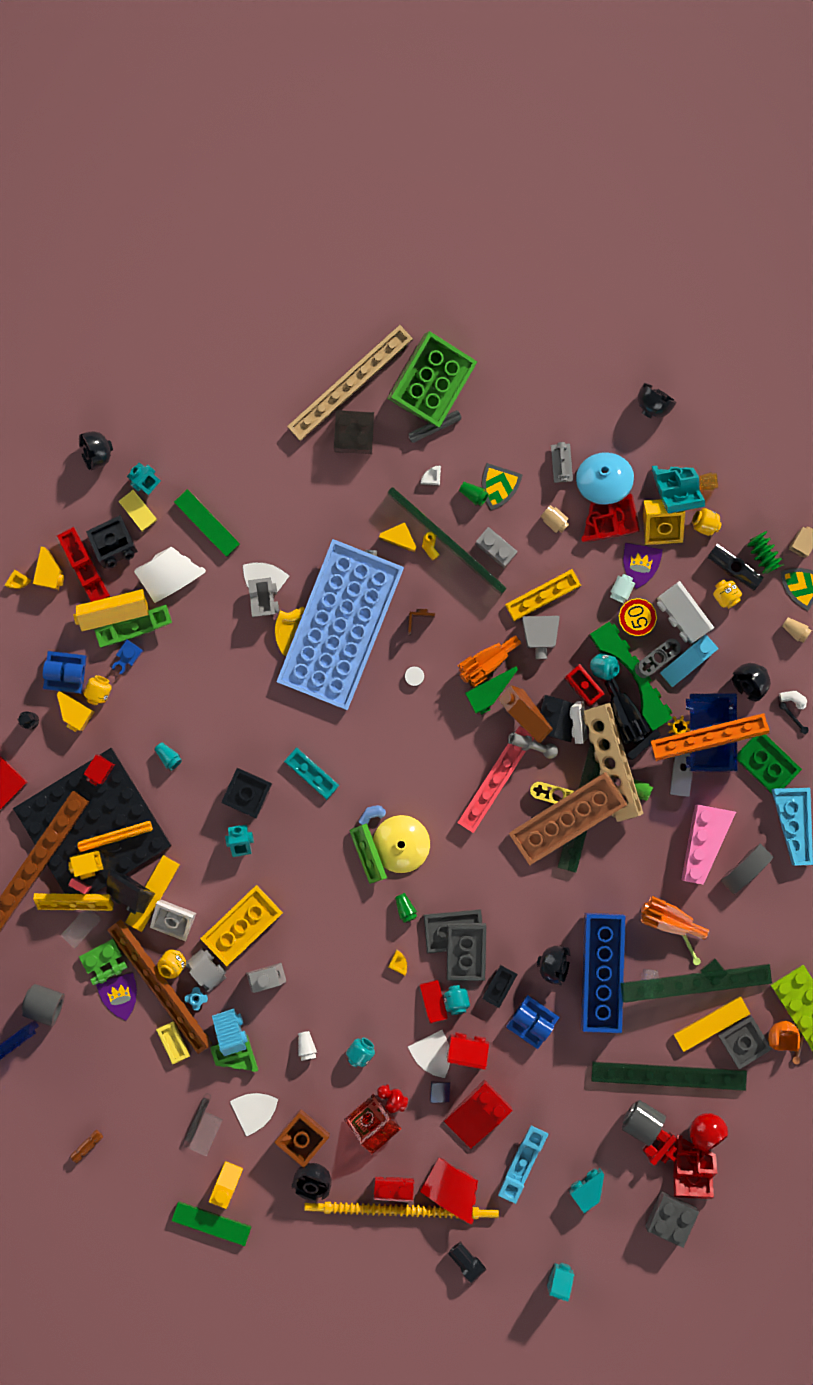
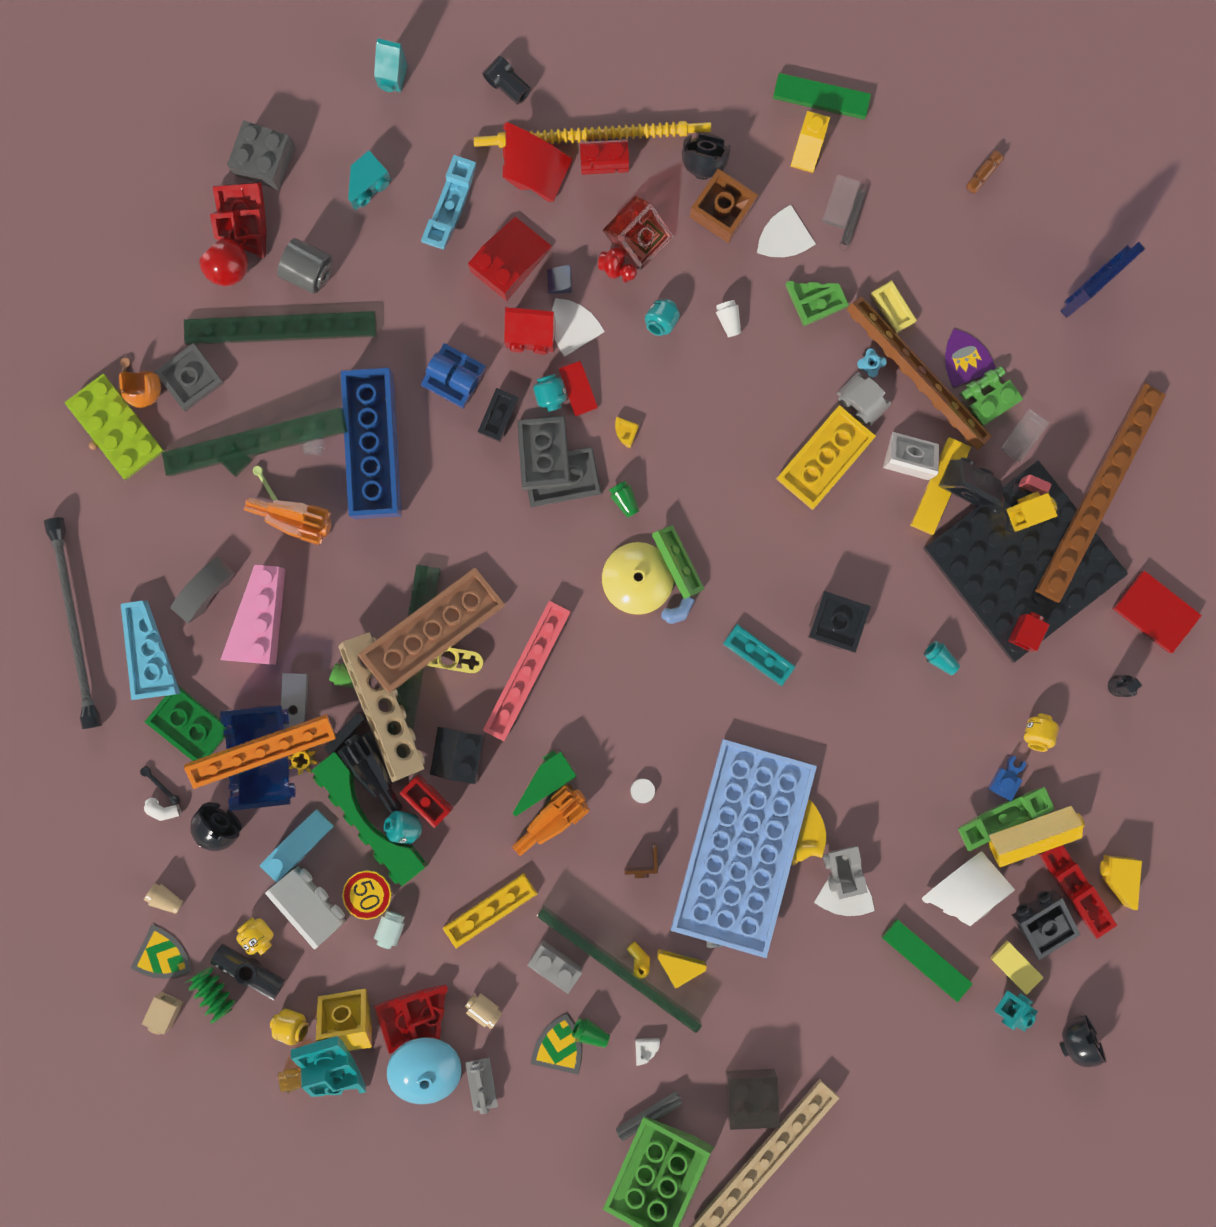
camera: 175 degrees right, 0 degrees up
(17, 580) = (1158, 861): yellow tile -> none
(42, 1004) = (1061, 334): dark grey piece -> none
(64, 672) = (1085, 751): blue plate -> none
(74, 712) = (1067, 701): yellow slope -> none
(93, 902) = (1039, 464): yellow tile -> none
(114, 836) = (998, 551): light orange axle -> none
(171, 964) = (908, 400): yellow head -> none
(229, 1032) = (827, 324): medium azure brick -> none
(239, 840) = (840, 561): teal brick -> none
(266, 977) = (788, 396): light grey torso -> none
(525, 712) = (497, 758): dark orange slope -> none
(525, 742) = (463, 713): light grey pin -> none
(540, 633) = (488, 861): light grey torso -> none
(554, 964) = (433, 447): black cylinder -> none
(579, 729) = (427, 745): white plate -> none
(641, 562) = (369, 965): dark purple sticker -> none
(650, 658) = (346, 843): dark grey beam -> none
(654, 401) = (369, 1178): black cylinder -> none
(655, 1154) = (278, 236): red hips -> none
(711, 1023) = (232, 396): yellow tile -> none

